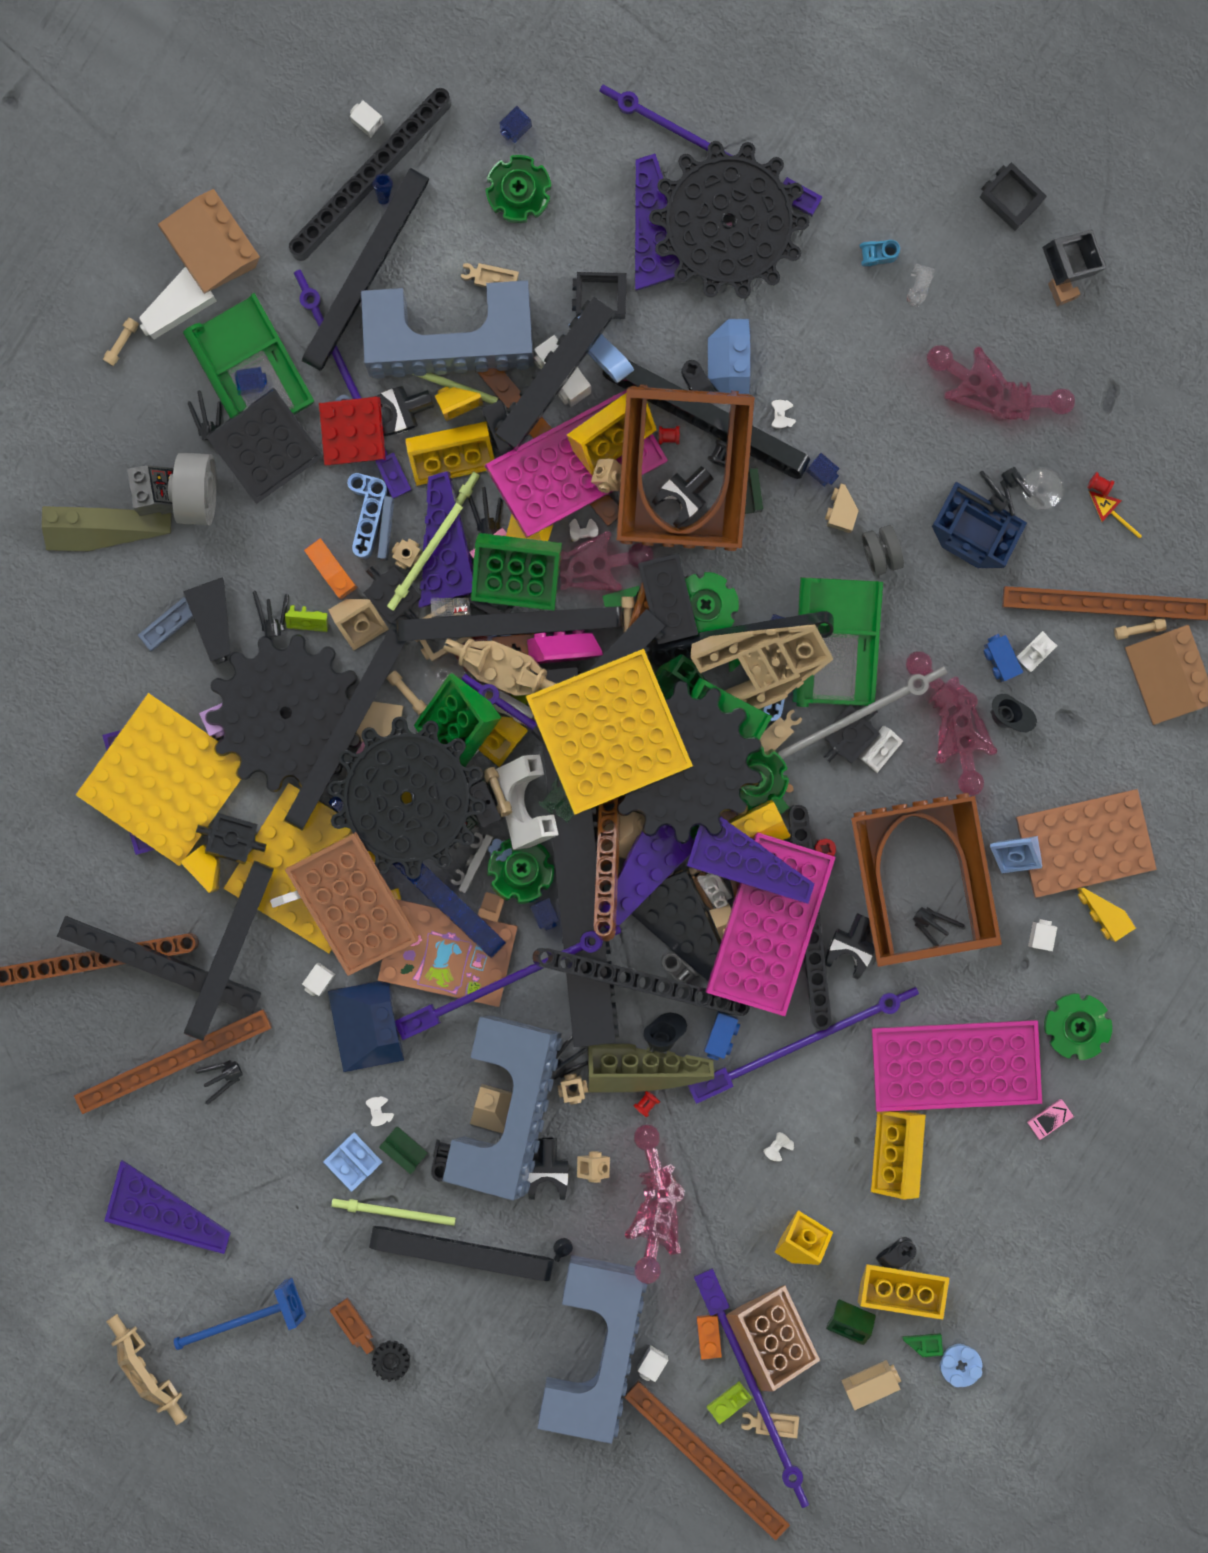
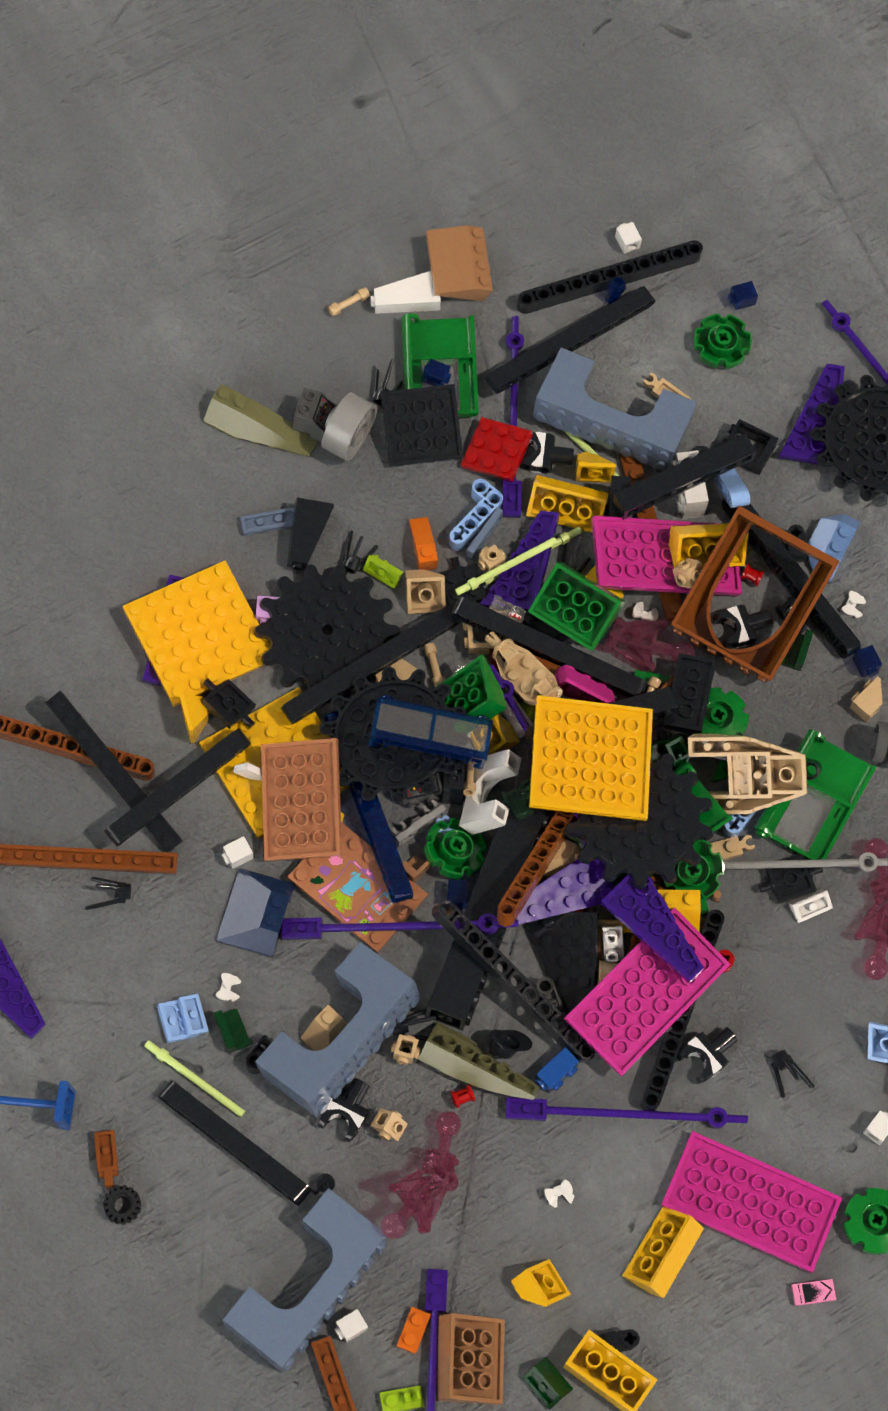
camera: 20 degrees right, 20 degrees down
(441, 781) = (431, 730): none -> windscreen
(961, 824) = (849, 990): dark orange panel -> none

